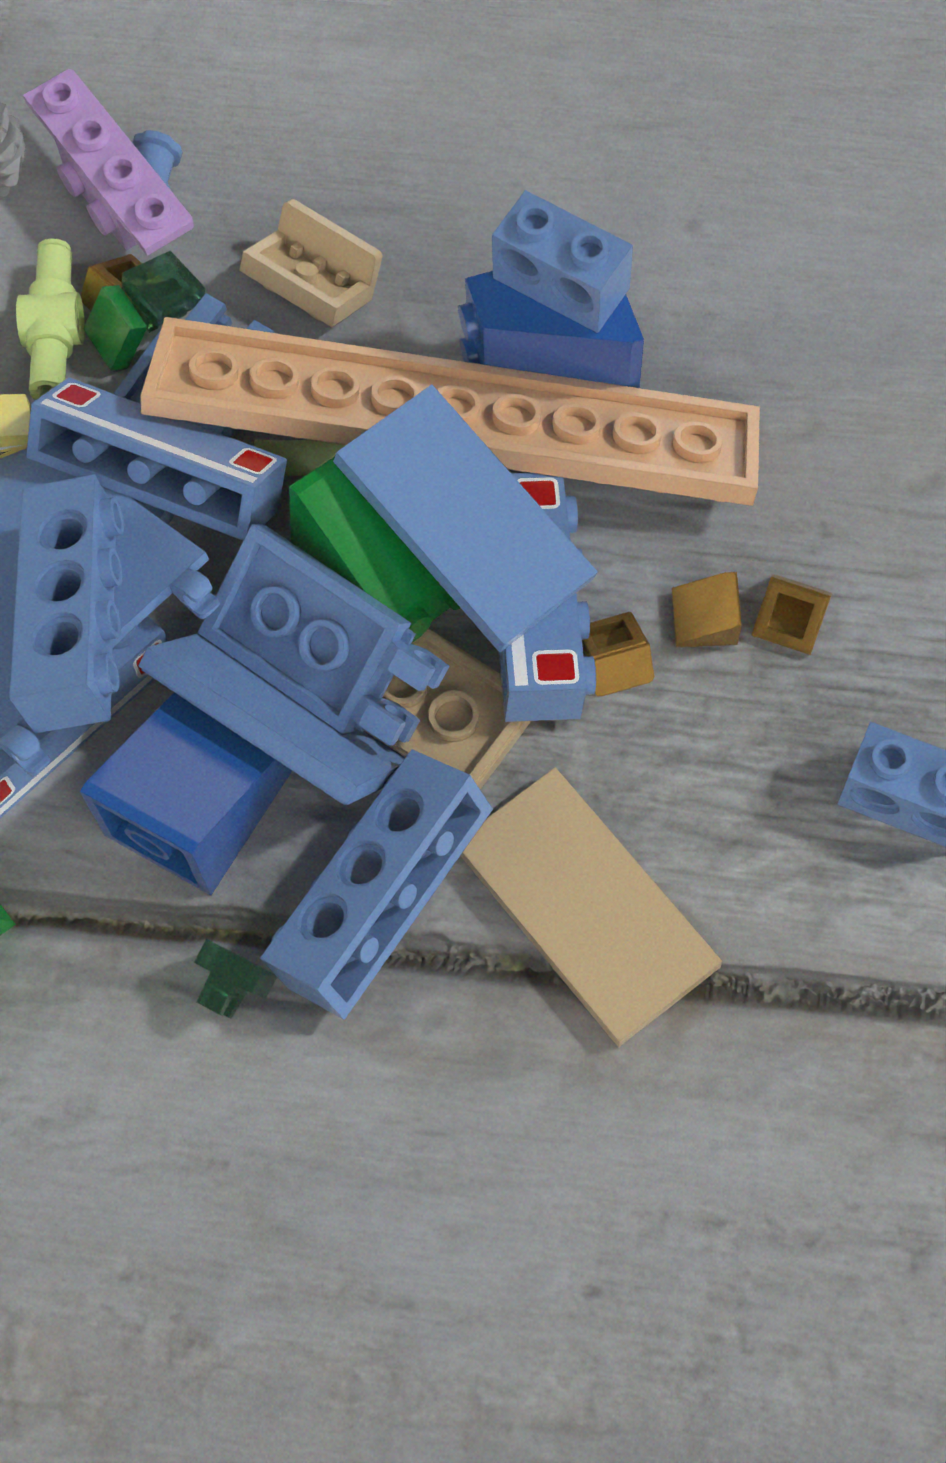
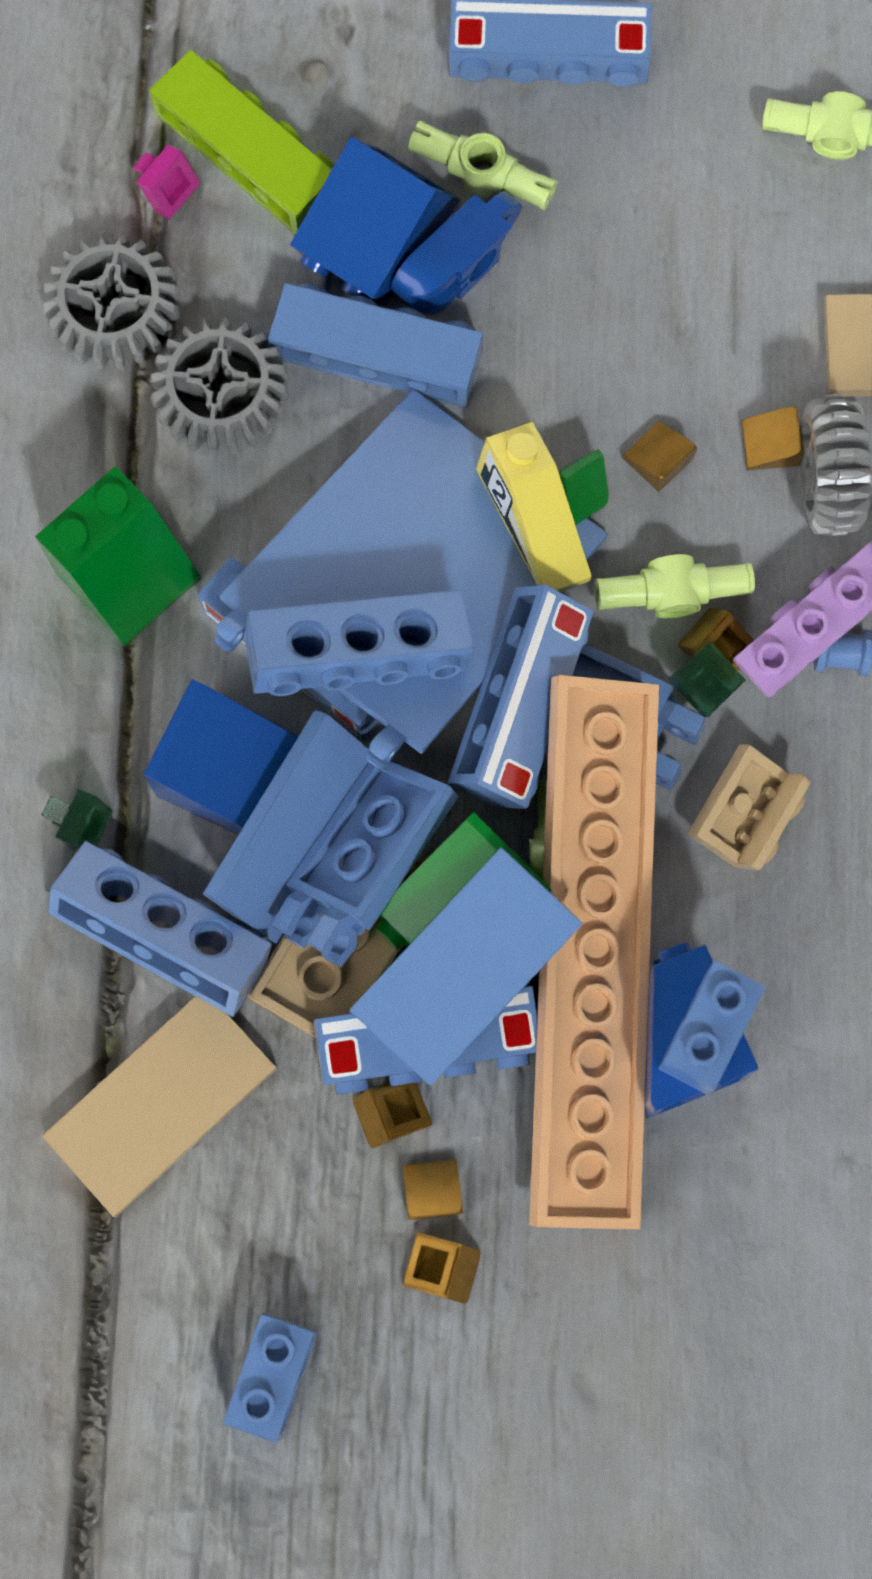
camera: 85 degrees right, 10 degrees up
(115, 327) = (669, 643): green tile -> none

